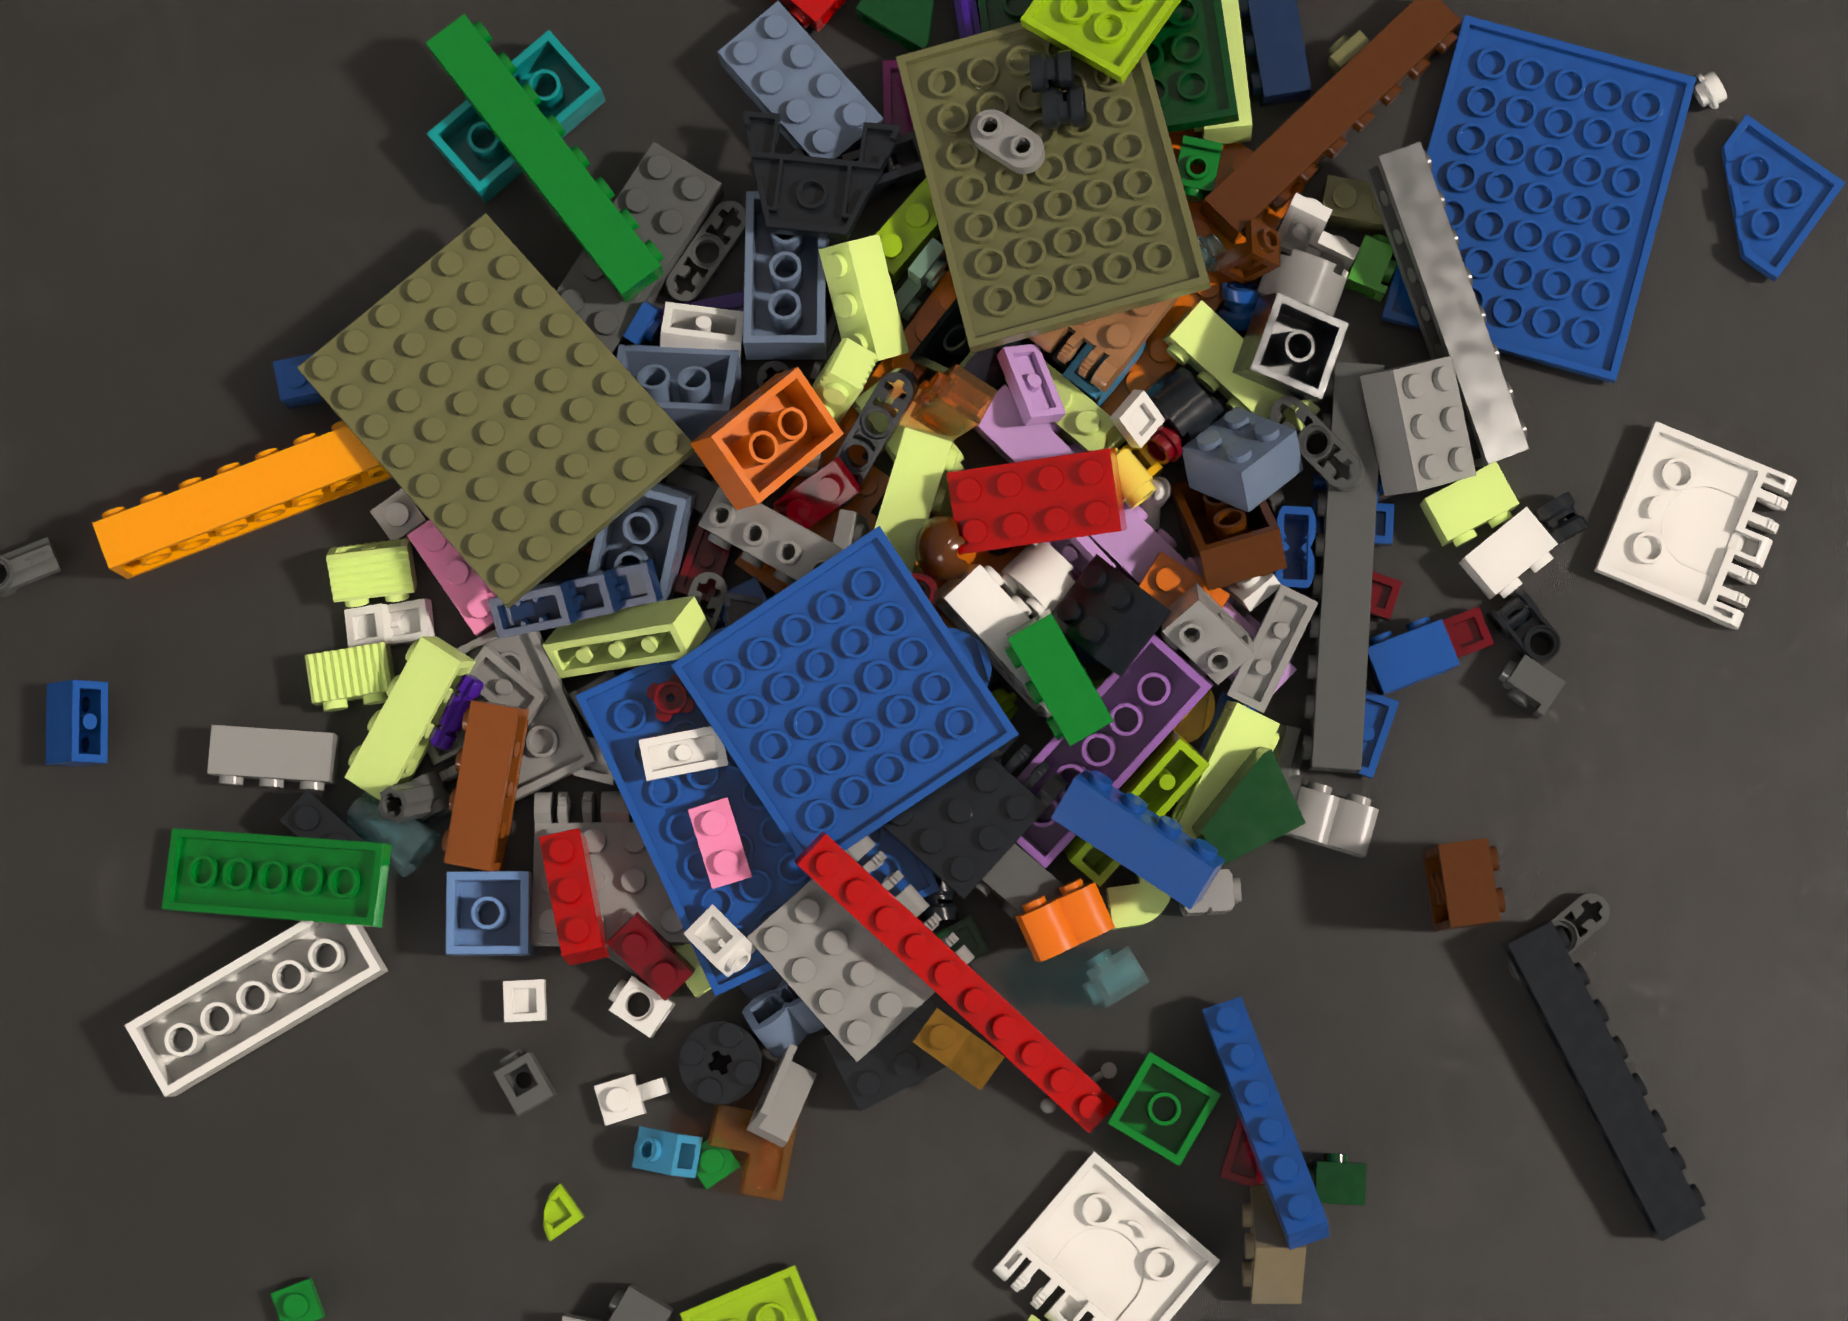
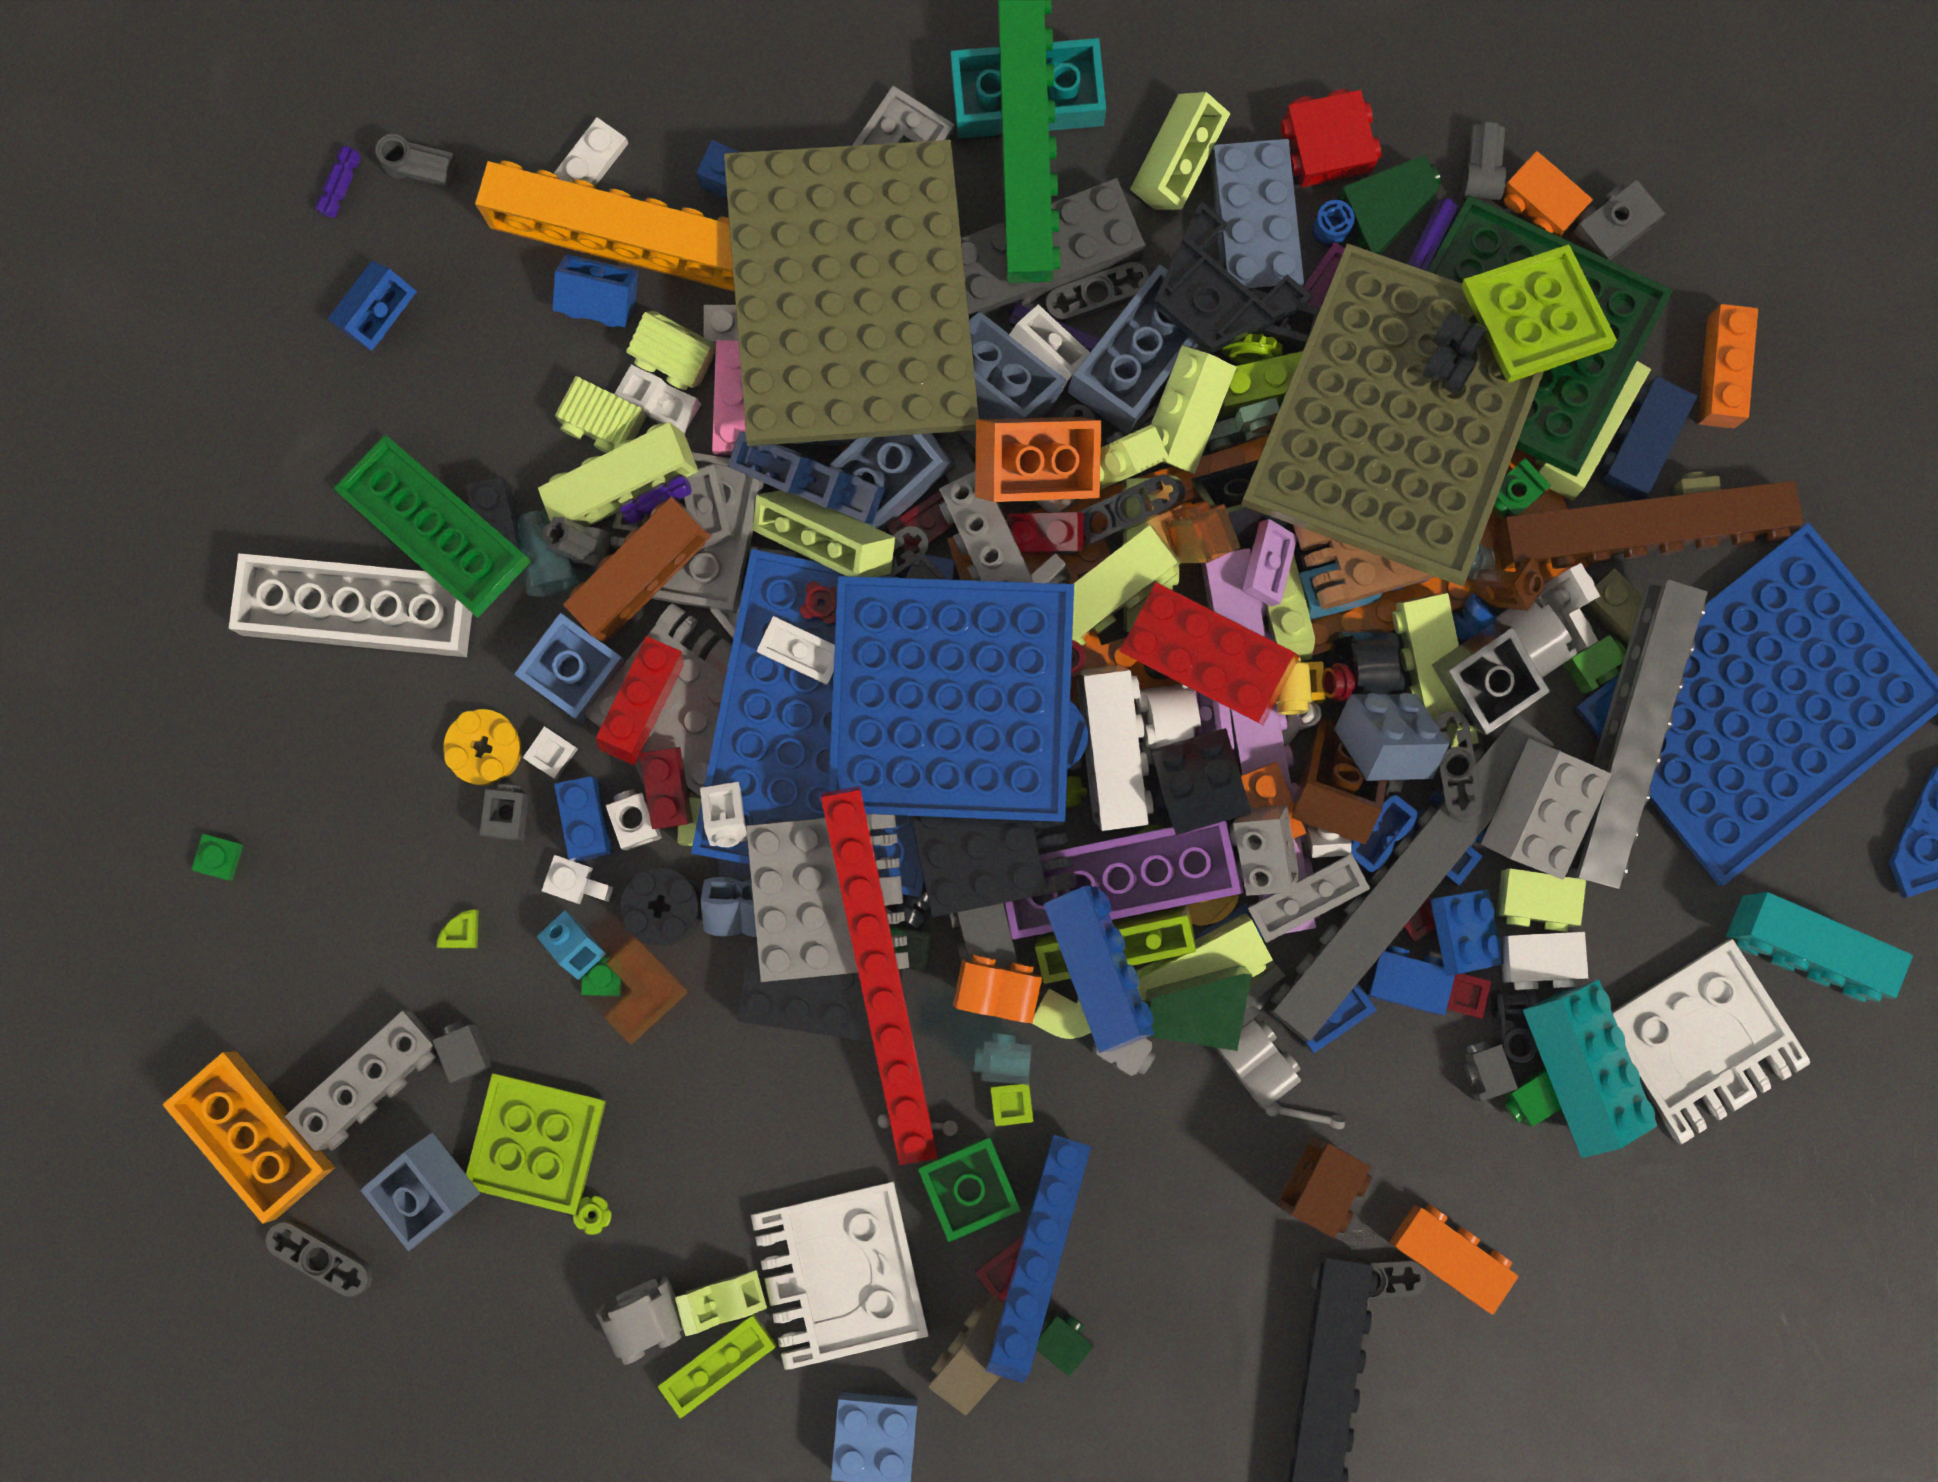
camera: 30 degrees right, 0 degrees up
(171, 451) = (592, 154): none -> white plate
(266, 568) = (595, 291): none -> blue brick
(273, 756) = (498, 435): light grey brick -> none
(424, 222) = (903, 119): none -> light grey plate
(481, 1050) = (493, 766): none -> yellow plate
(596, 1036) = (583, 819): none -> blue brick
(644, 324) = (1009, 310): blue plate -> none
(690, 77) = (1180, 151): none -> yellowish green brick
(719, 843) = (778, 739): bright pink plate -> none
(782, 1099) = (686, 968): light grey panel -> none
(870, 53) = (1329, 230): none -> blue wheel
(882, 206) = (1253, 349): none -> lime gear
(938, 547) = (1106, 635): reddish brown hair -> none
(958, 1049) = (844, 1028): pearl gold slope -> none
(1005, 140) = (1385, 362): light grey plate -> none
(1057, 678) = (1126, 801): green brick -> none
(1137, 418) = (1332, 647): white plate -> none
(1147, 1011) = (1011, 1104): none -> lime plate
(1427, 579) = (1467, 932): none -> blue plate
(1432, 823) = (1334, 1121): none -> light grey hinge
(1555, 511) = (1606, 952): black wheel -> none
(1587, 678) = (1533, 1099): none -> green brick
(1614, 620) = (1590, 1069): none -> teal brick
(1616, 864) = (1455, 1257): none -> orange brick
(1732, 376) = (1819, 947): none -> teal brick

